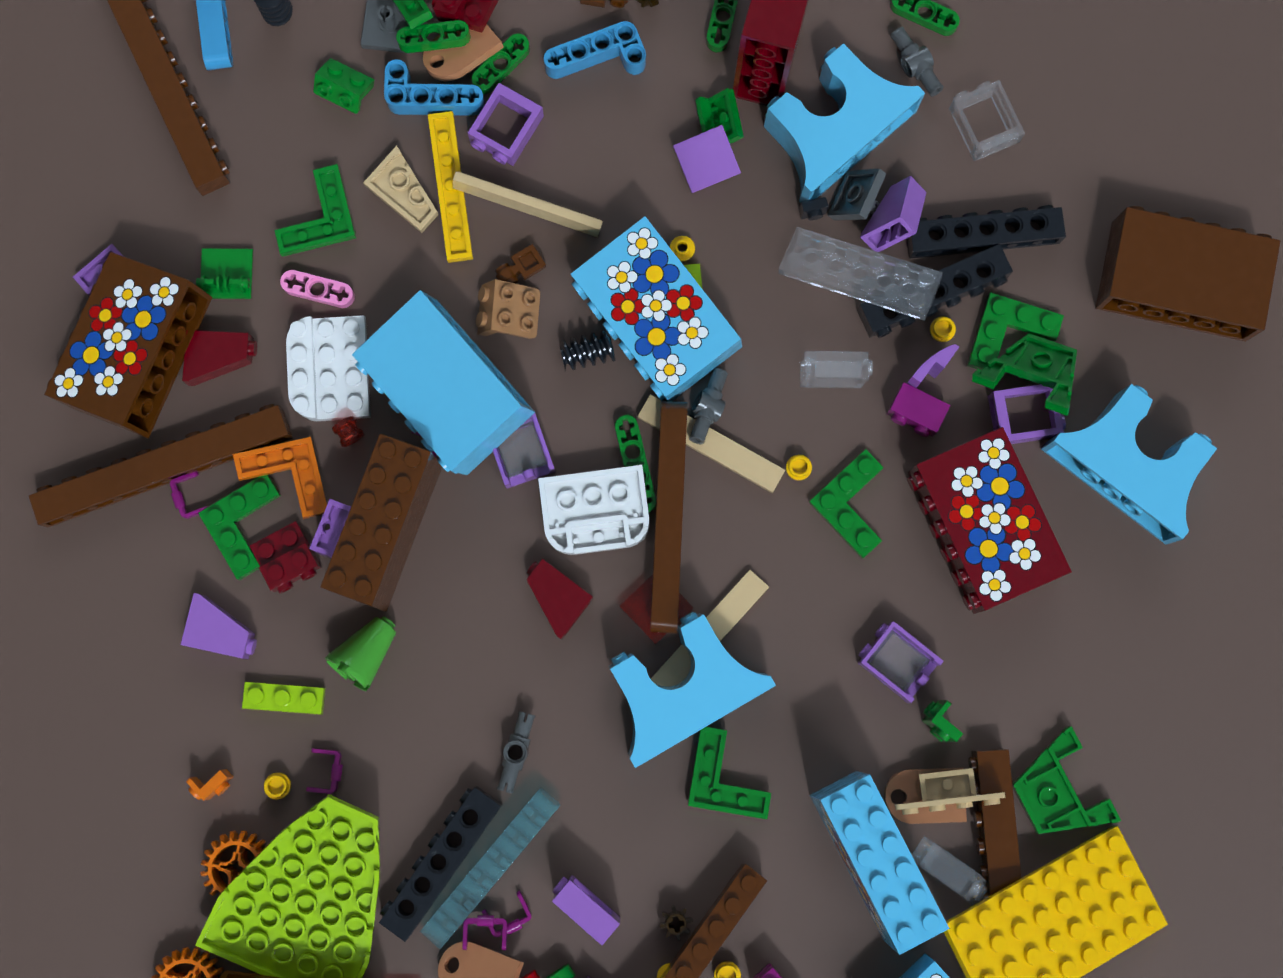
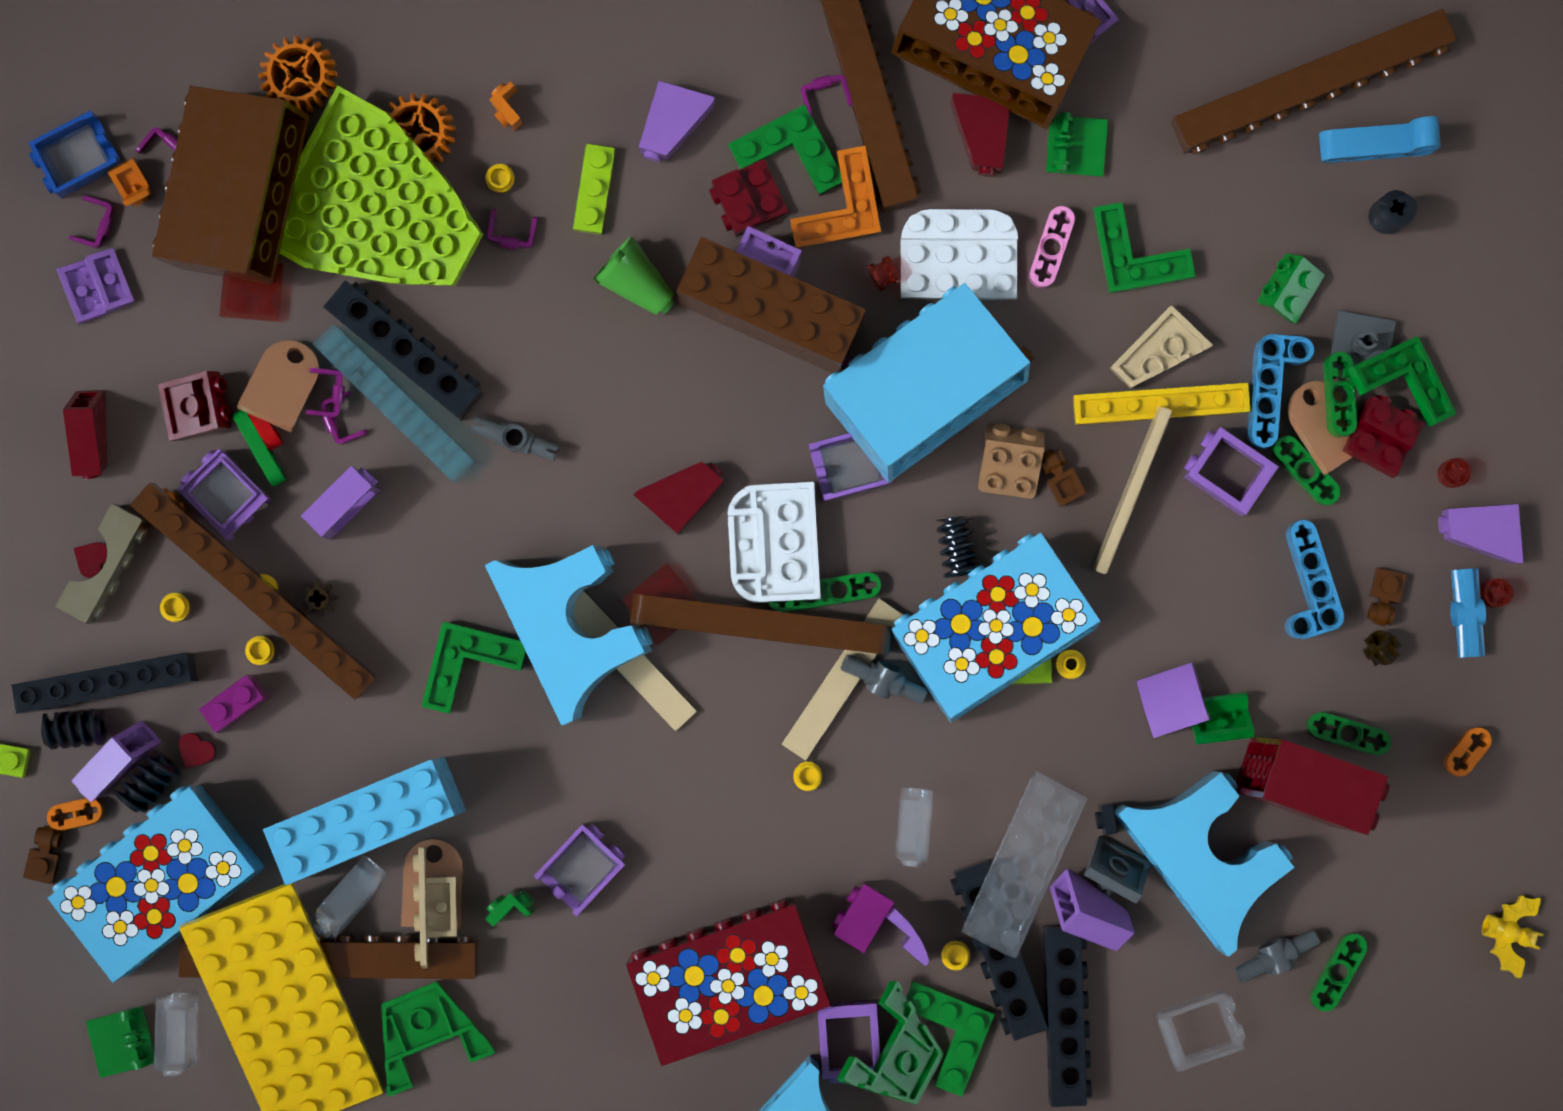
camera: 95 degrees right, 5 degrees up
(833, 506) = (767, 811): green plate -> none

